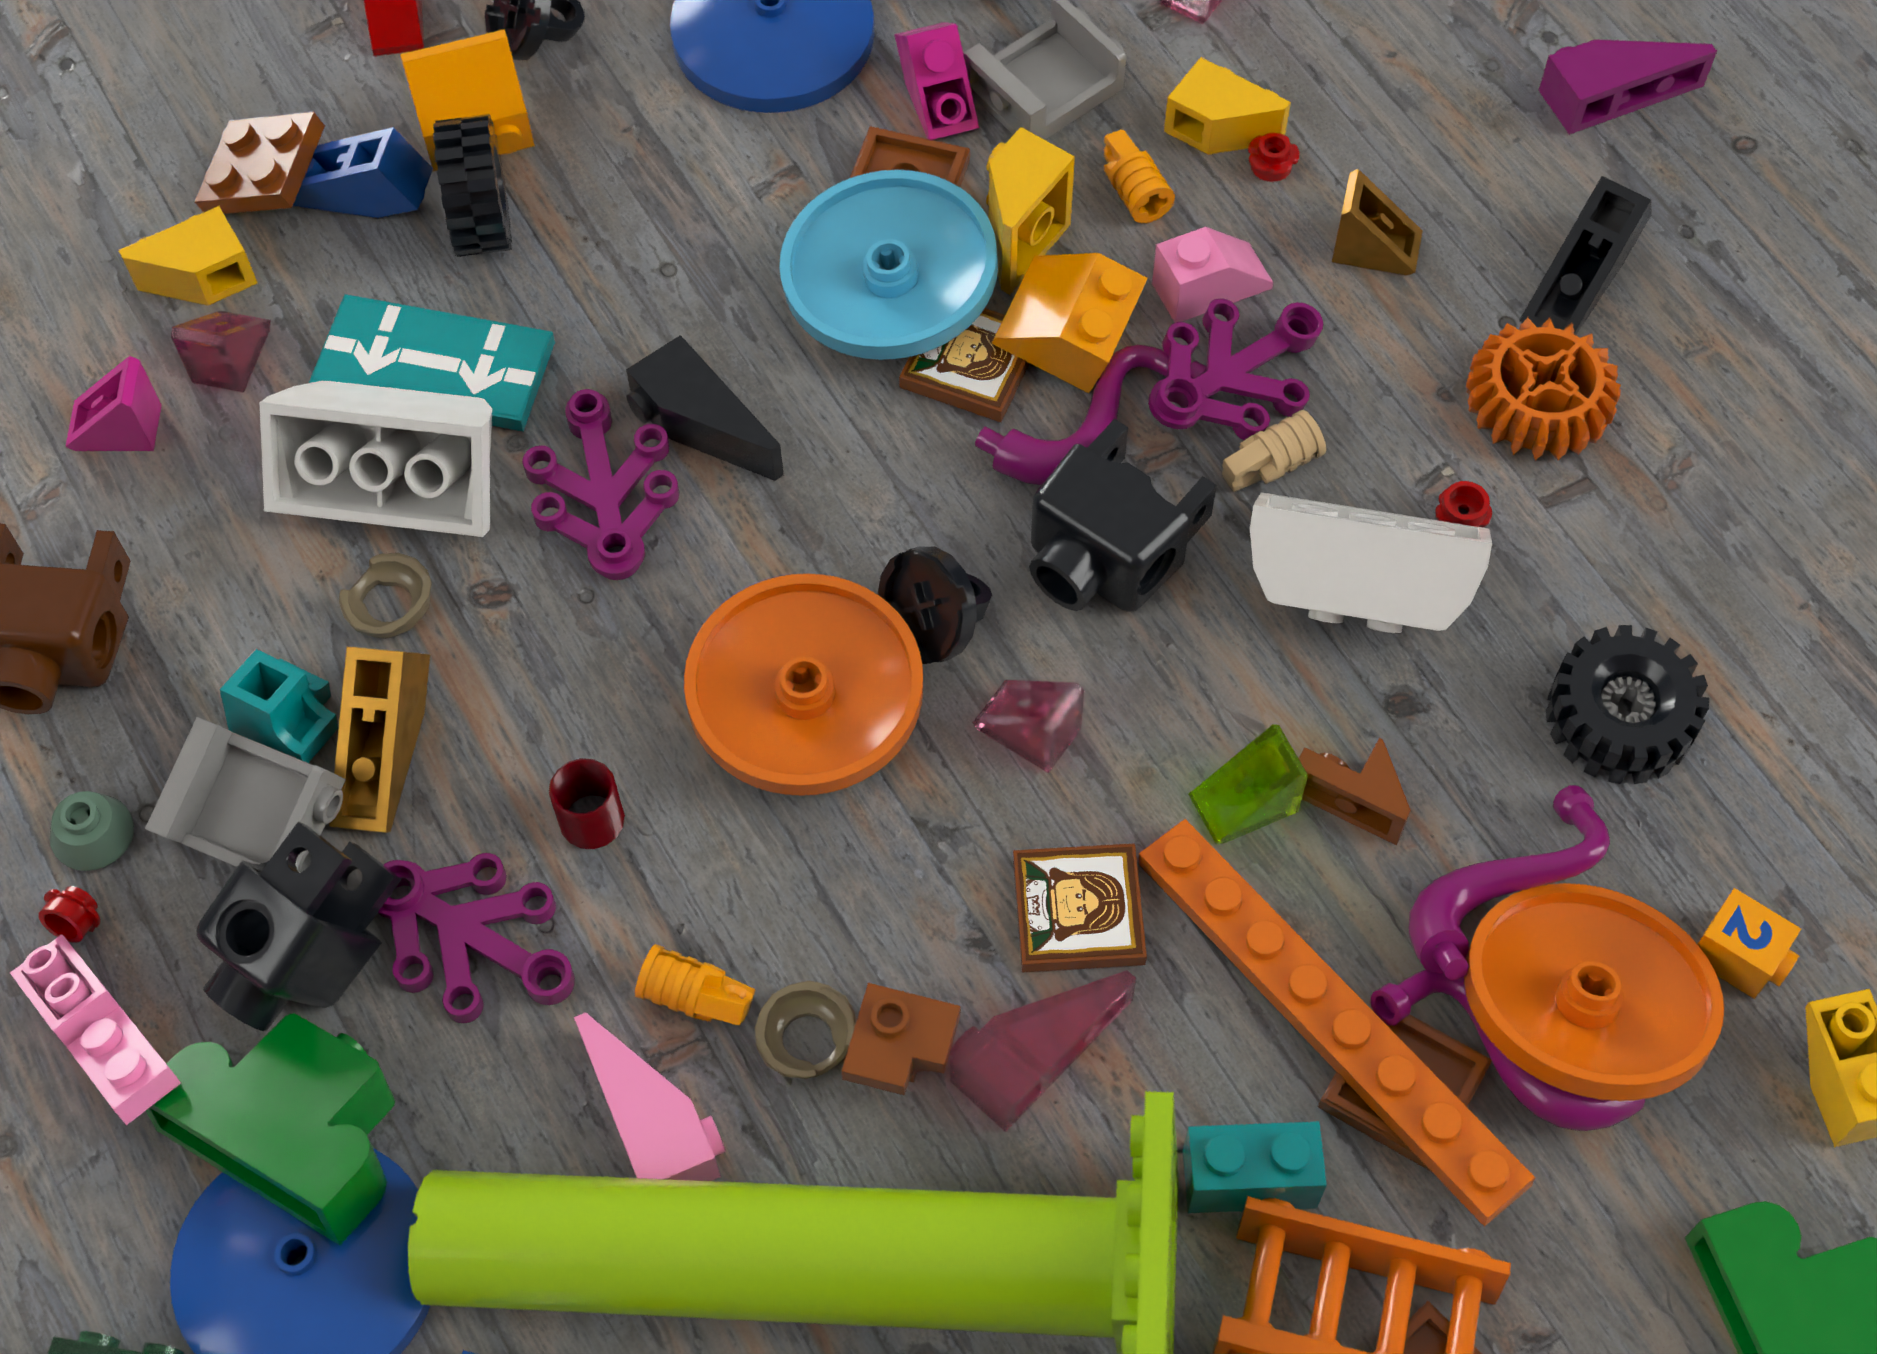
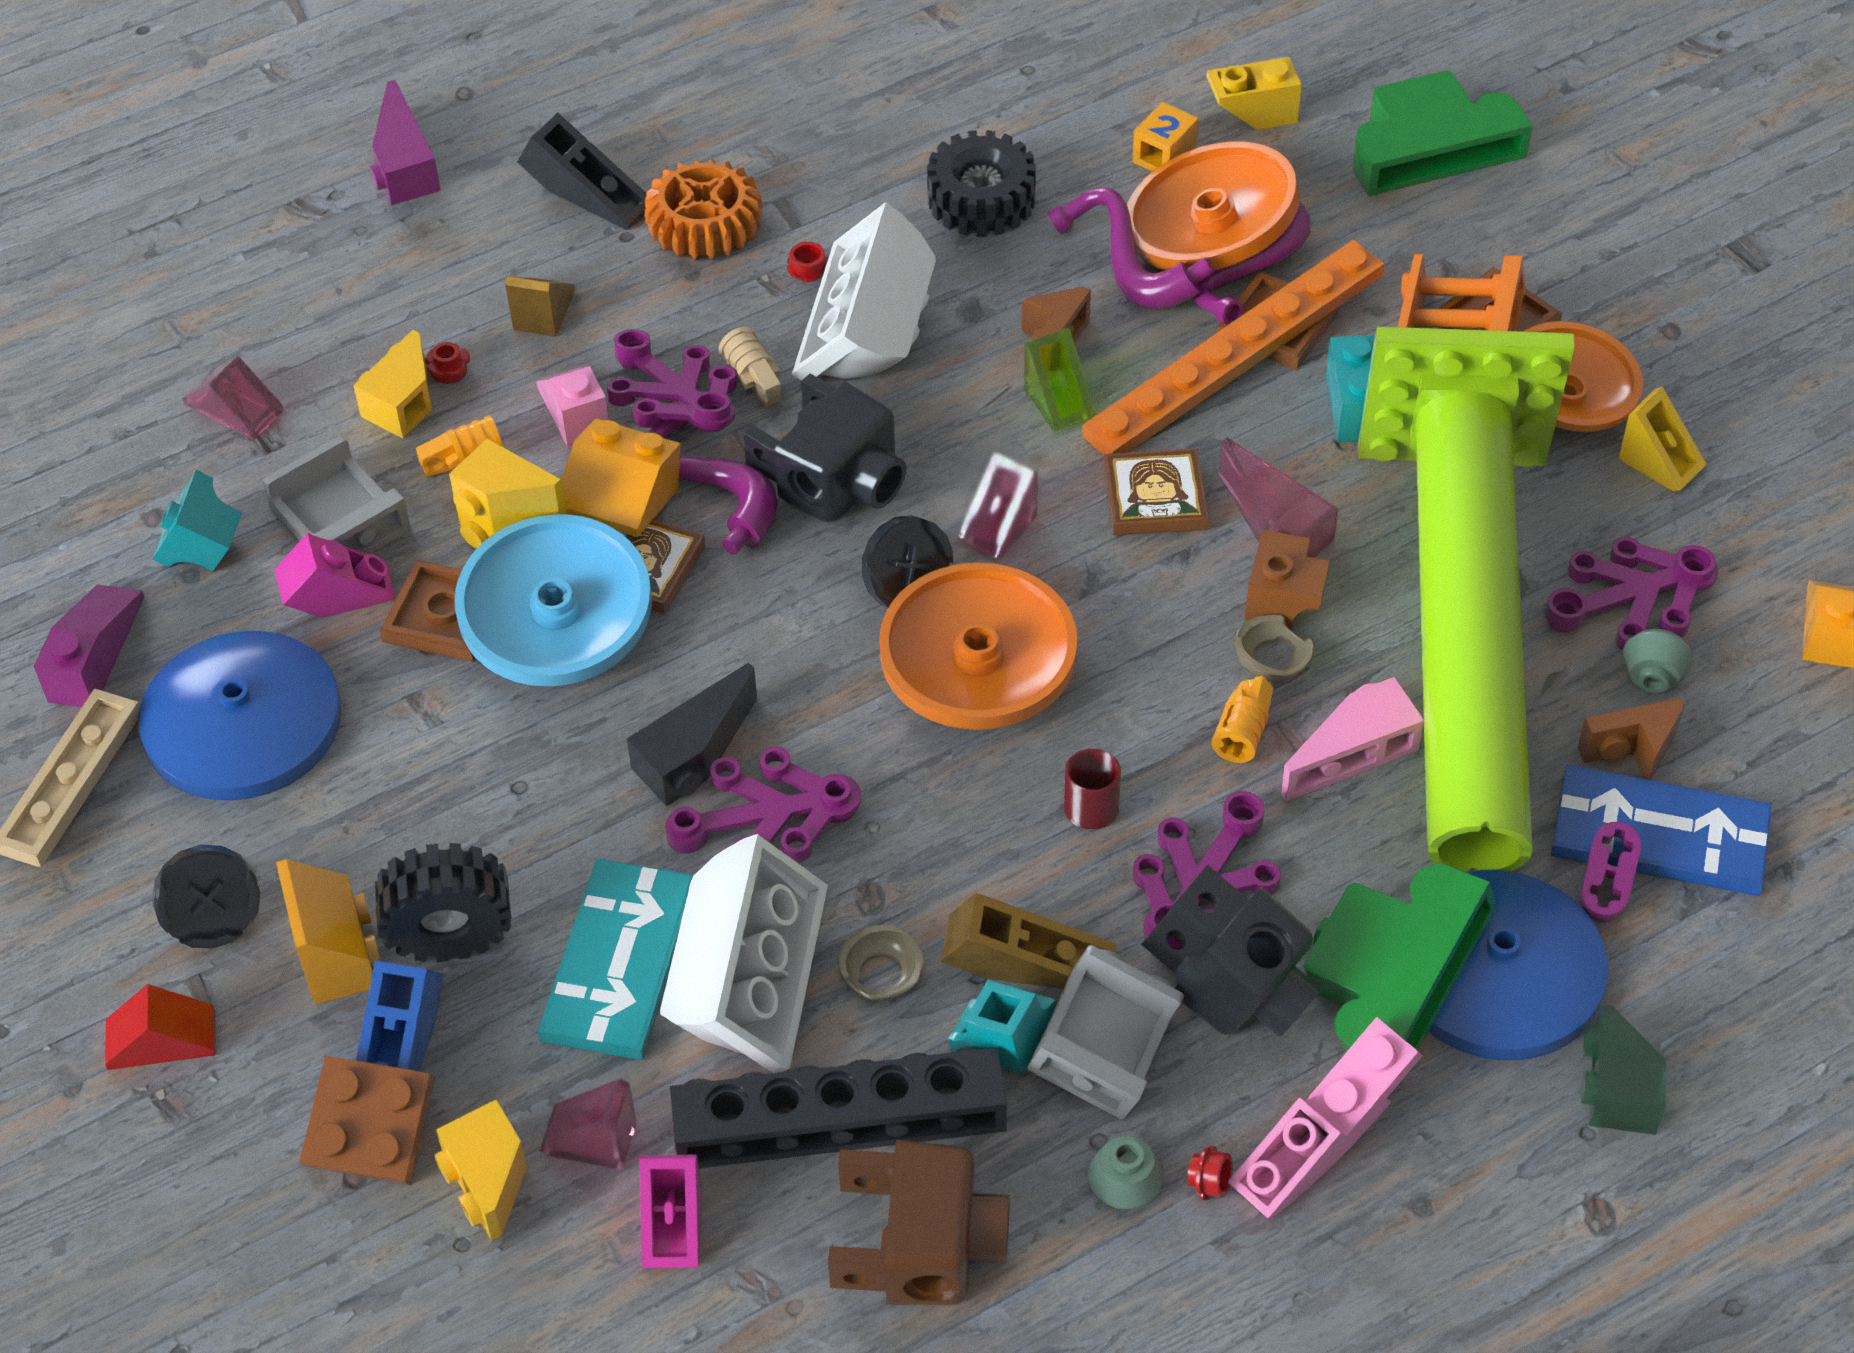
camera: 90 degrees left, 10 degrees down
(193, 481) = (863, 1123): none -> black brick

